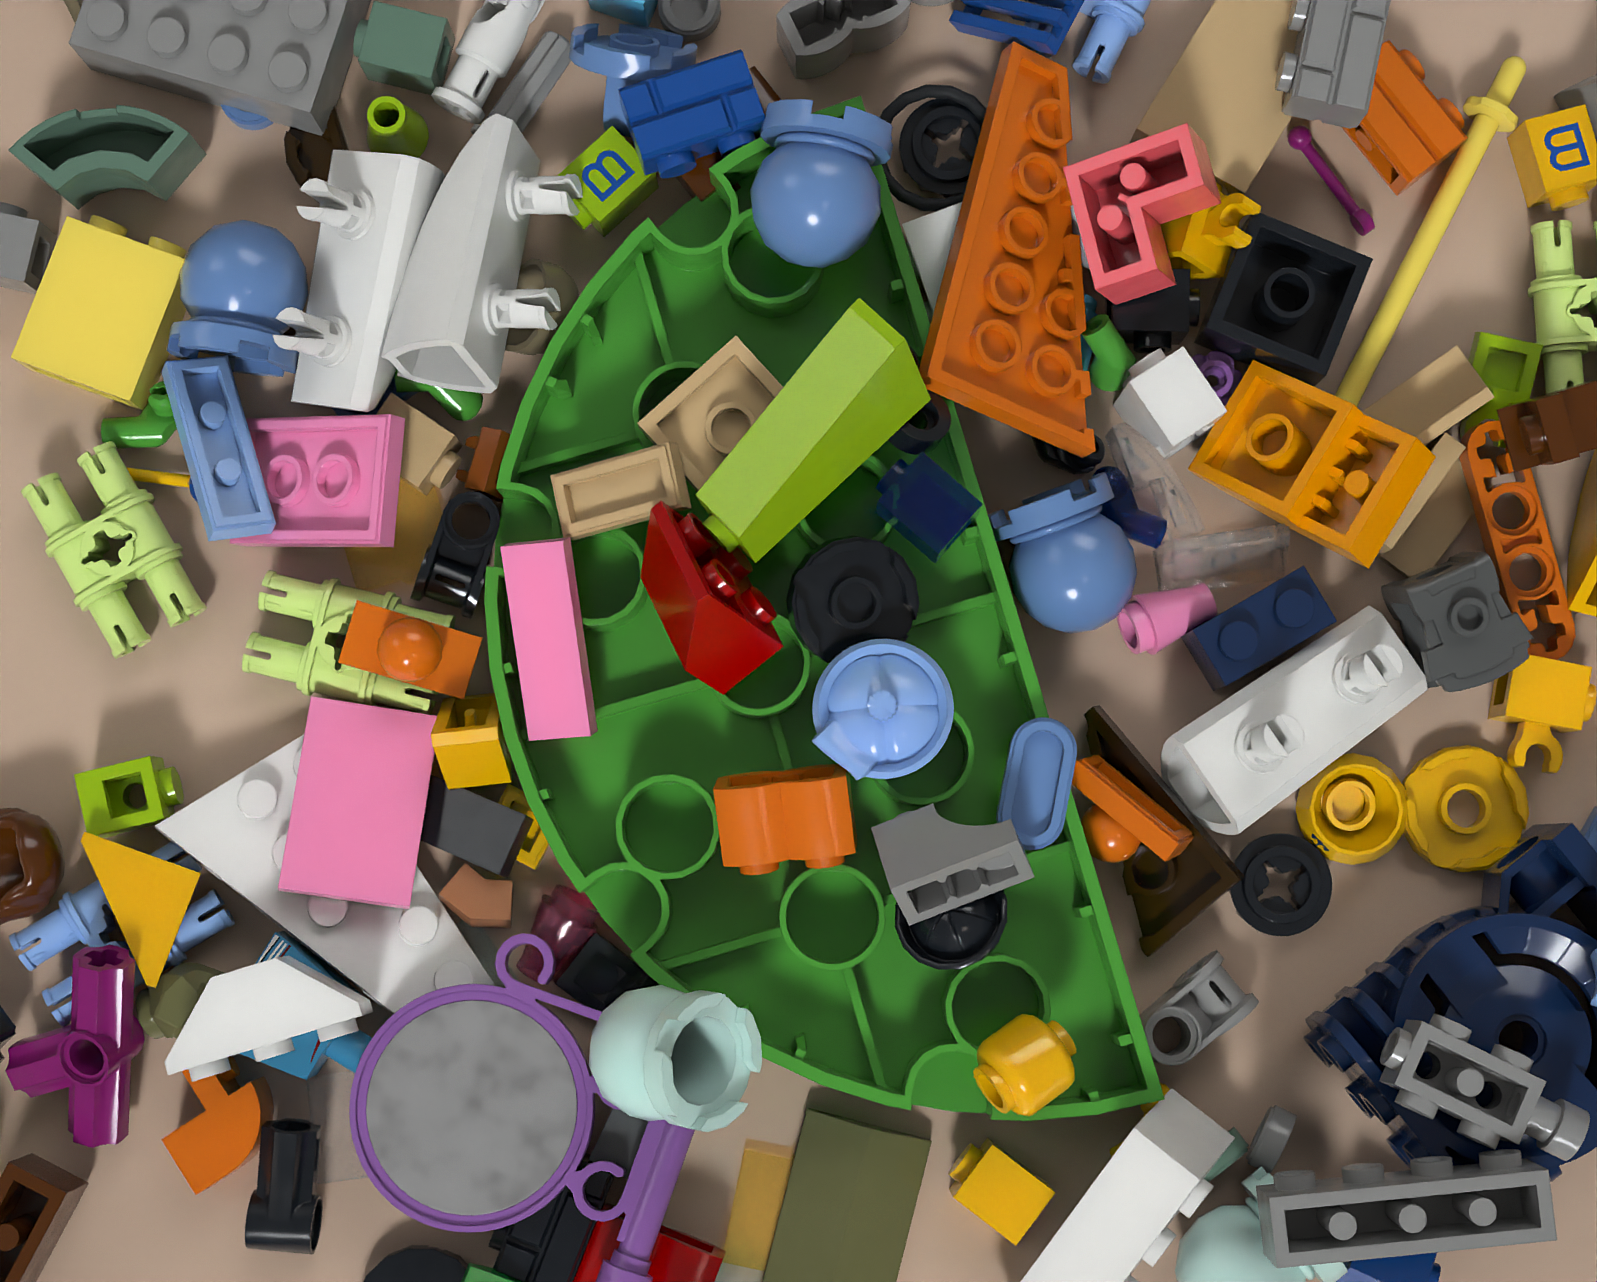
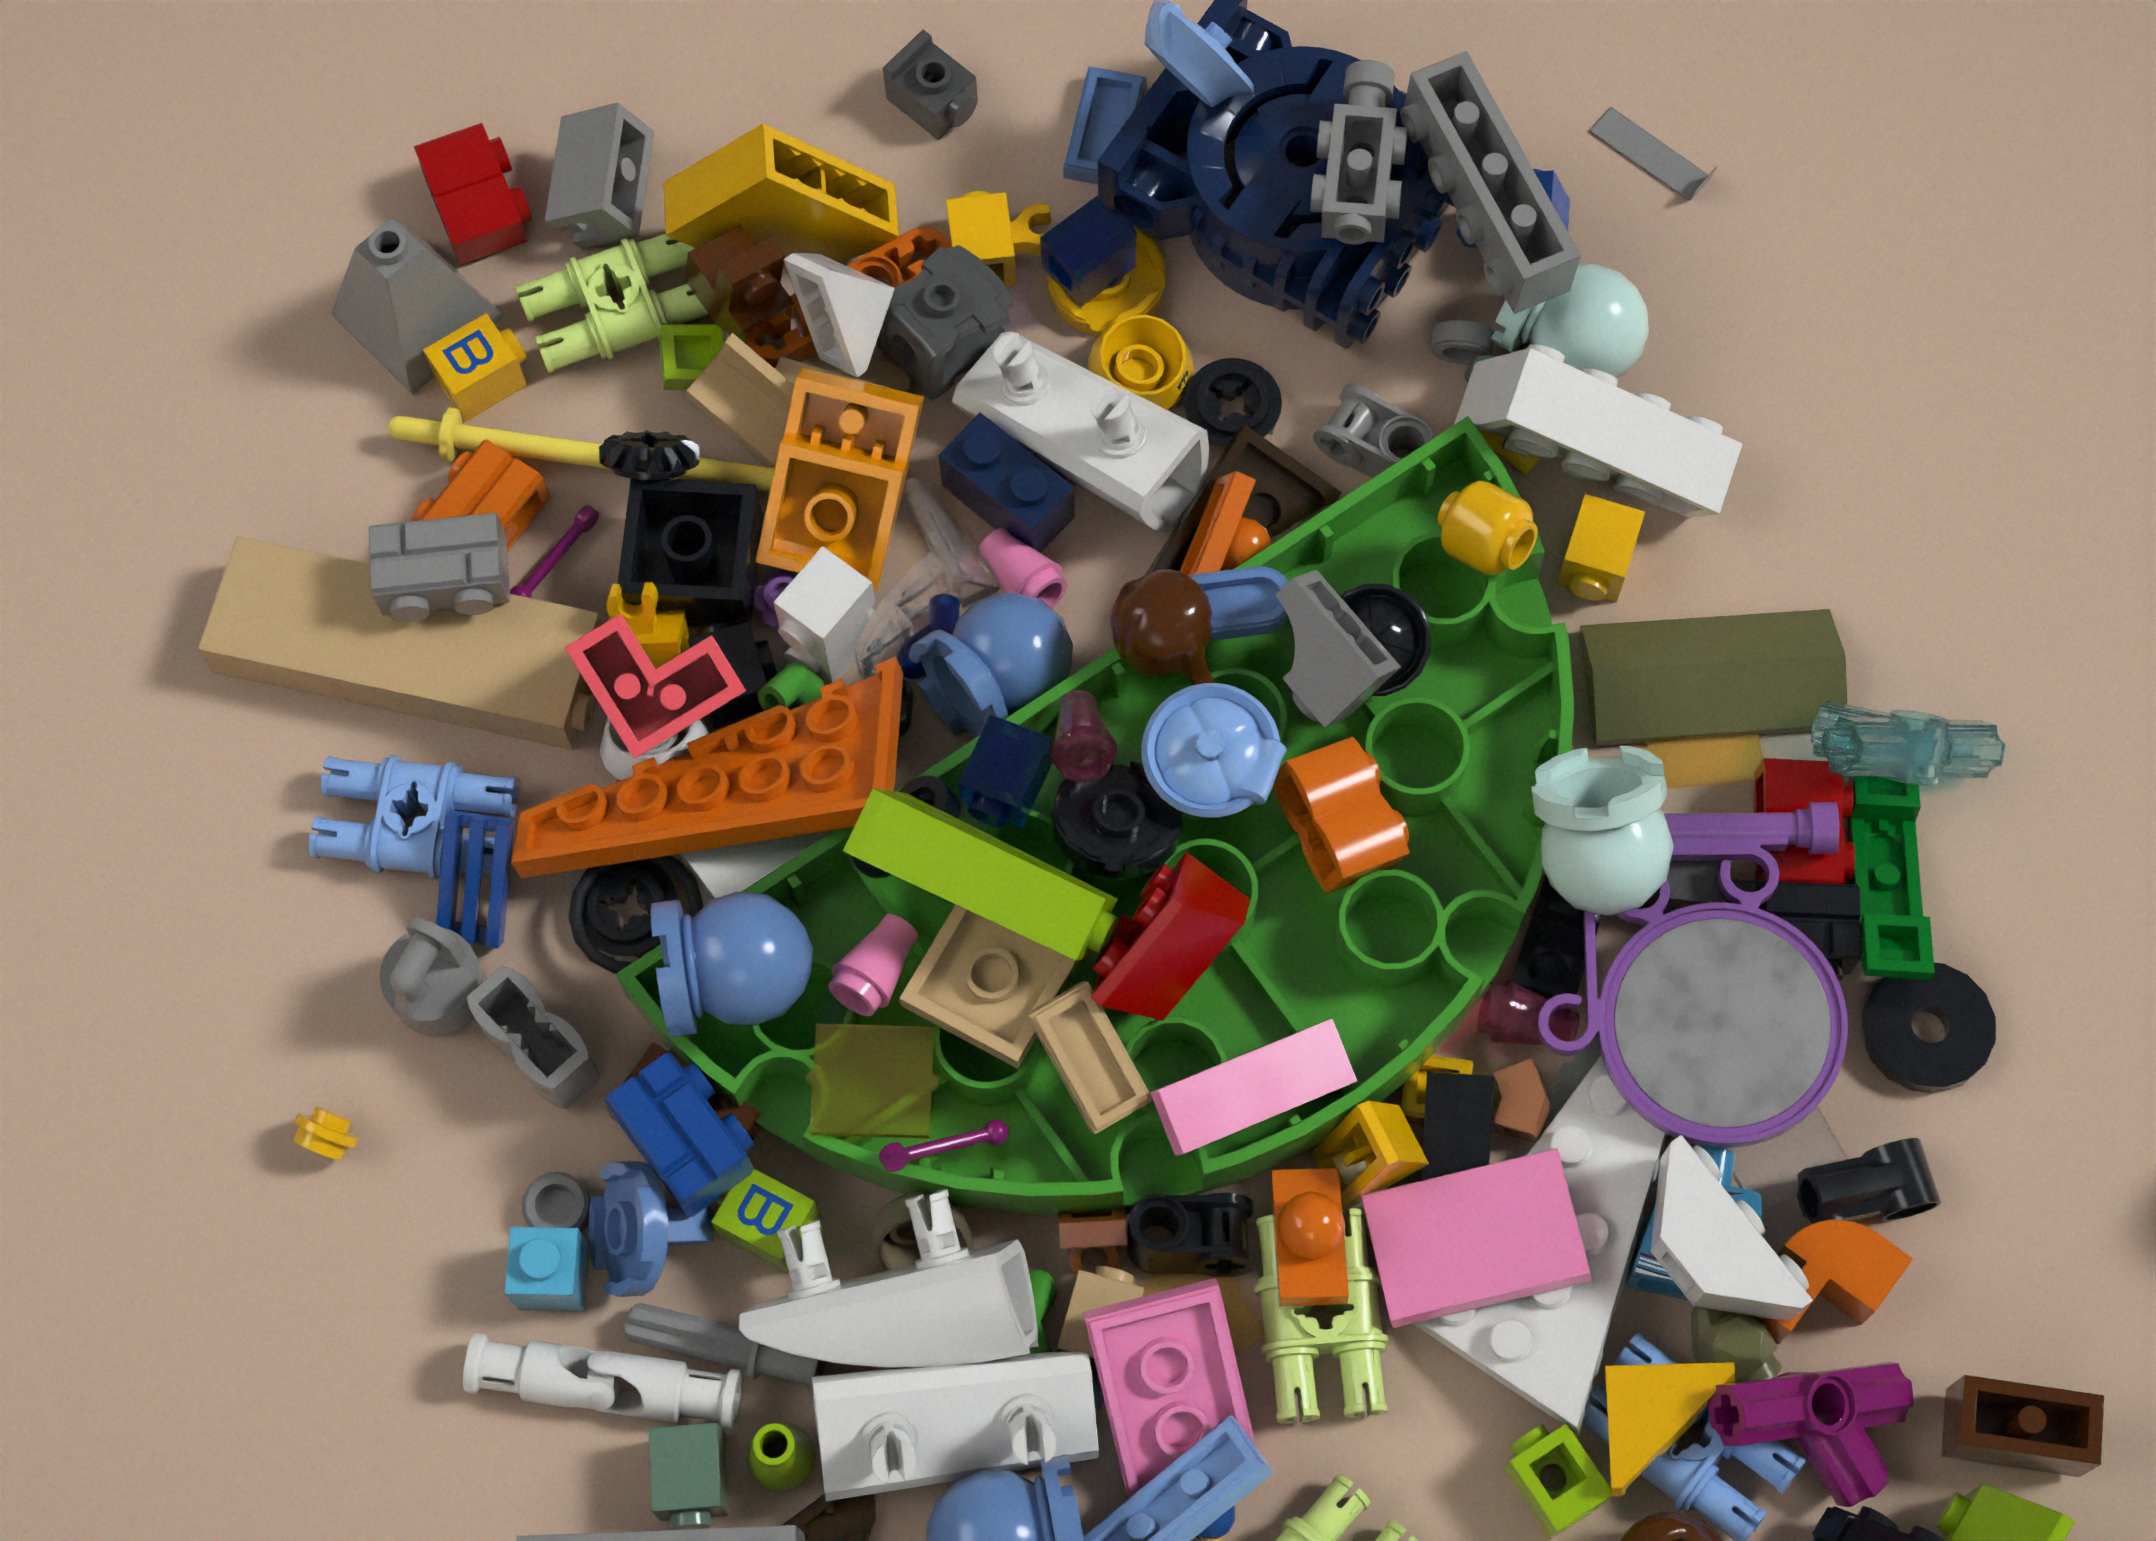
camera: 105 degrees left, 15 degrees down
(593, 291) = (895, 1156): none -> magenta hinge
(675, 294) = (872, 1081): none -> clear yellow piece
(777, 323) = (873, 967): none -> bright pink cone
(938, 591) = (1082, 741): none -> clear pink cone
(1028, 708) = (1163, 626): none -> reddish brown hair
(1390, 308) = (649, 455): none -> black gear
(1489, 794) = (1089, 250): none -> clear blue brick
(1499, 514) = (840, 309): none -> white slope

